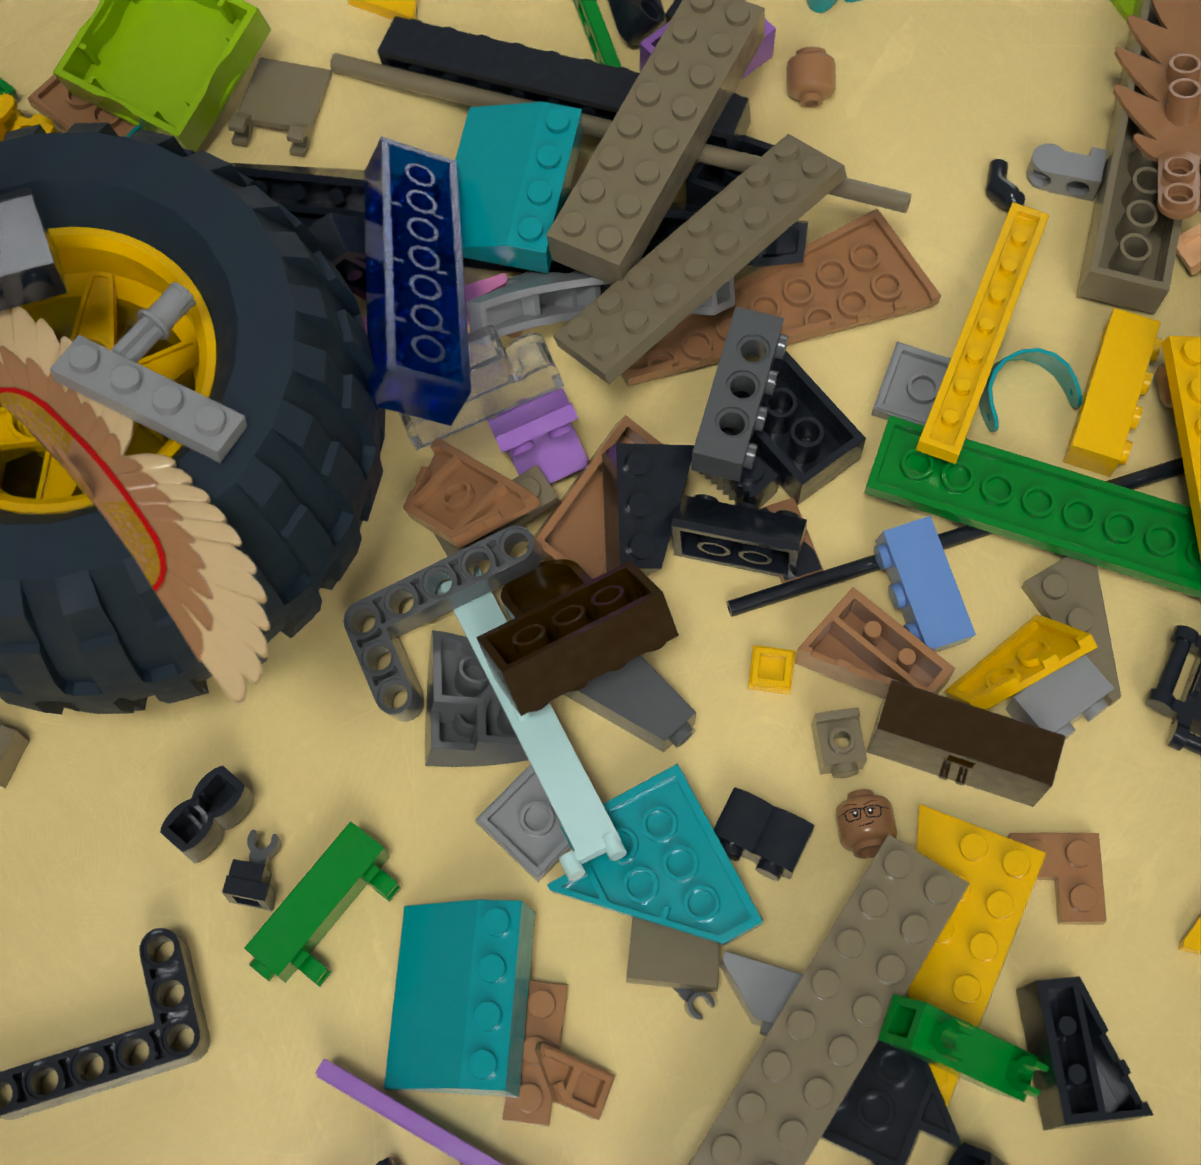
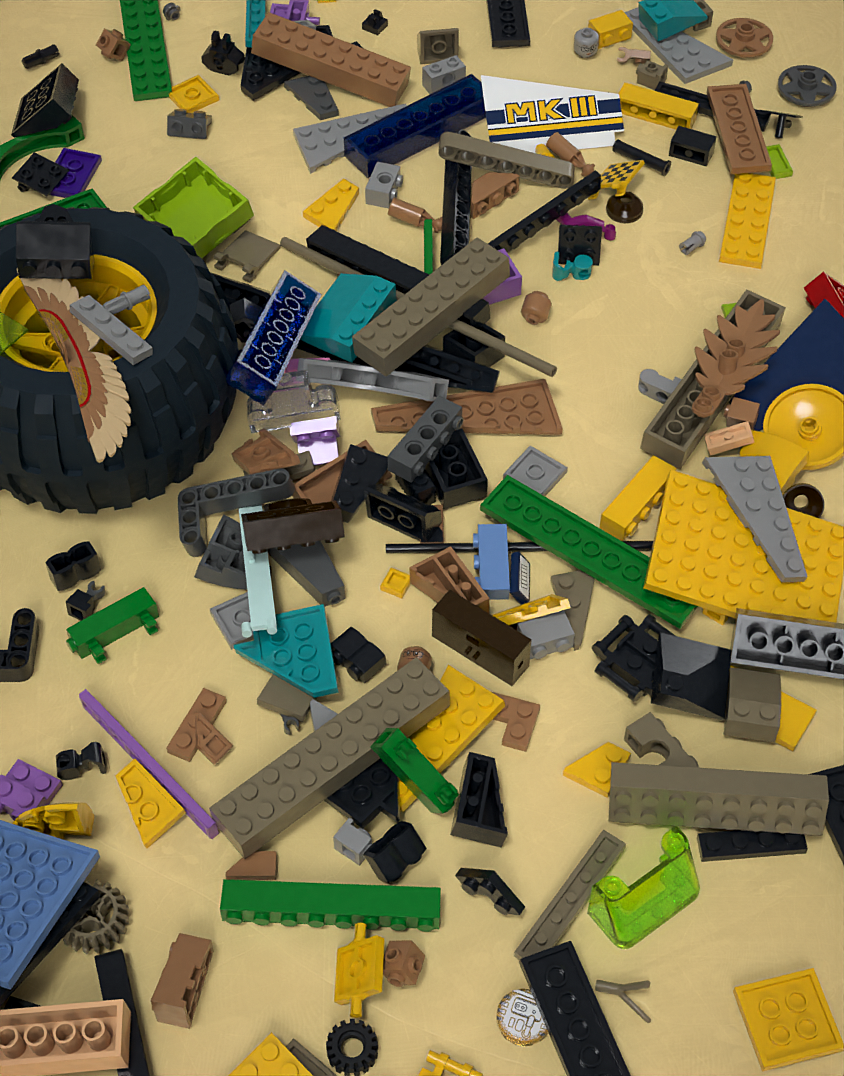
camera: 15 degrees right, 15 degrees down
(461, 998) = (169, 684): teal slope -> none
(699, 257) = (430, 368): dark tan plate -> none
(831, 758) = (417, 623): dark tan brick -> none
(977, 602) = (520, 578): none -> dark blue tile
(982, 334) = (575, 449): yellow plate -> none
(999, 188) = (619, 386): black arm -> none
(1046, 359) = (594, 467): teal piece -> none

